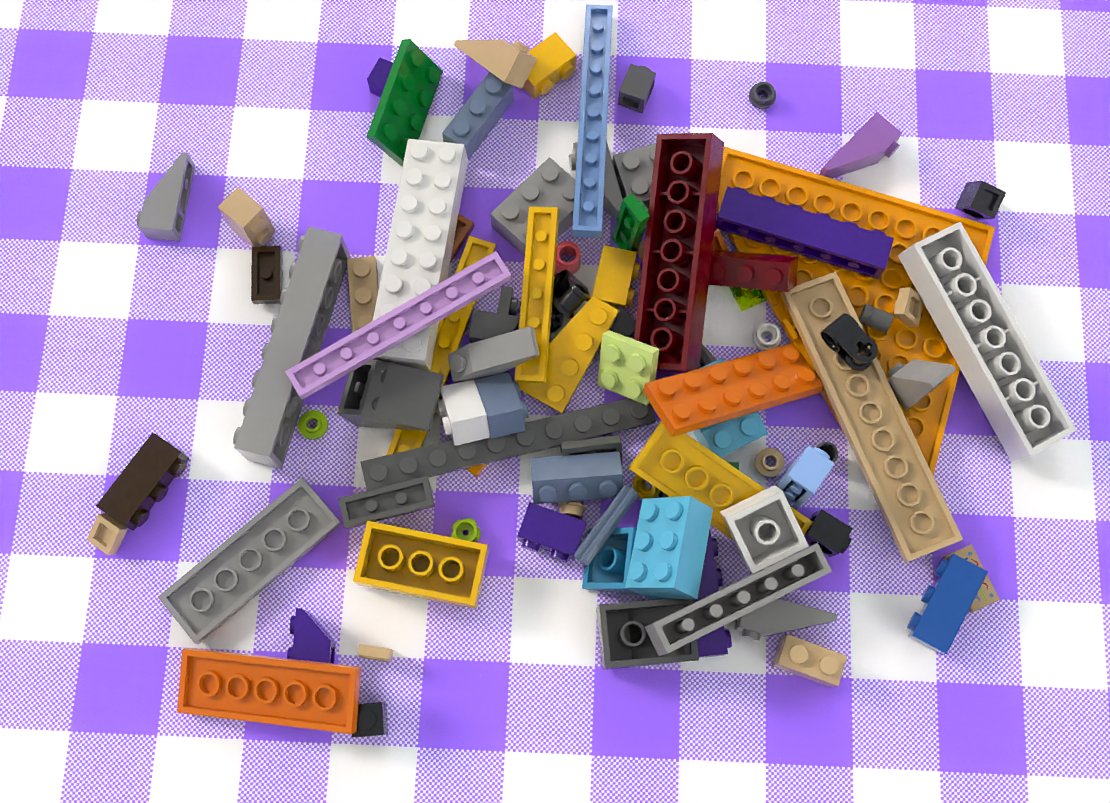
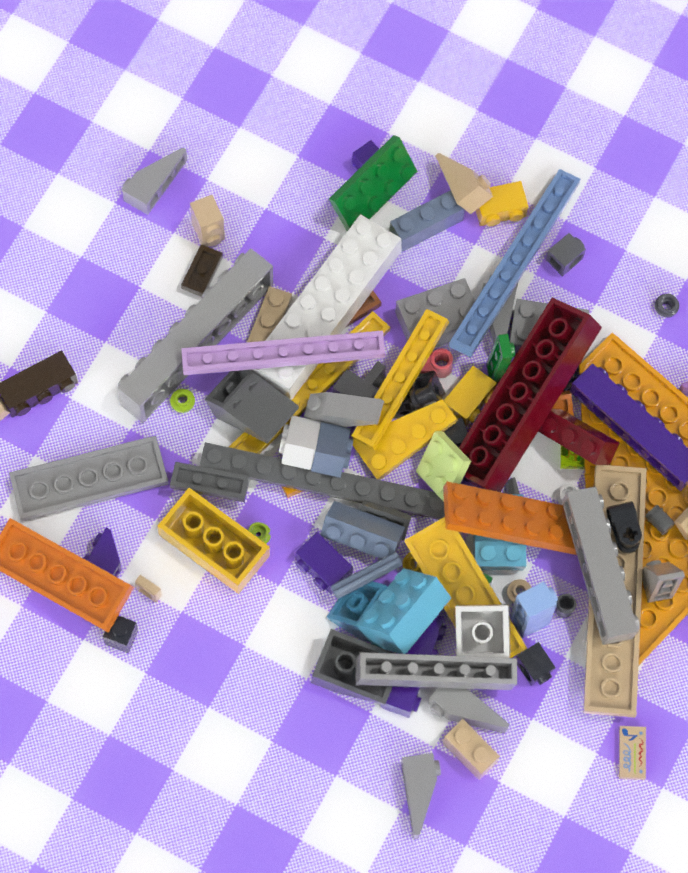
camera: 25 degrees right, 5 degrees down
(572, 508) = (349, 553): tan plate -> none
(776, 728) = (419, 779): none -> light grey slope
(847, 397) = (600, 565): none -> light grey brick
(946, 603) = (600, 758): blue brick -> none

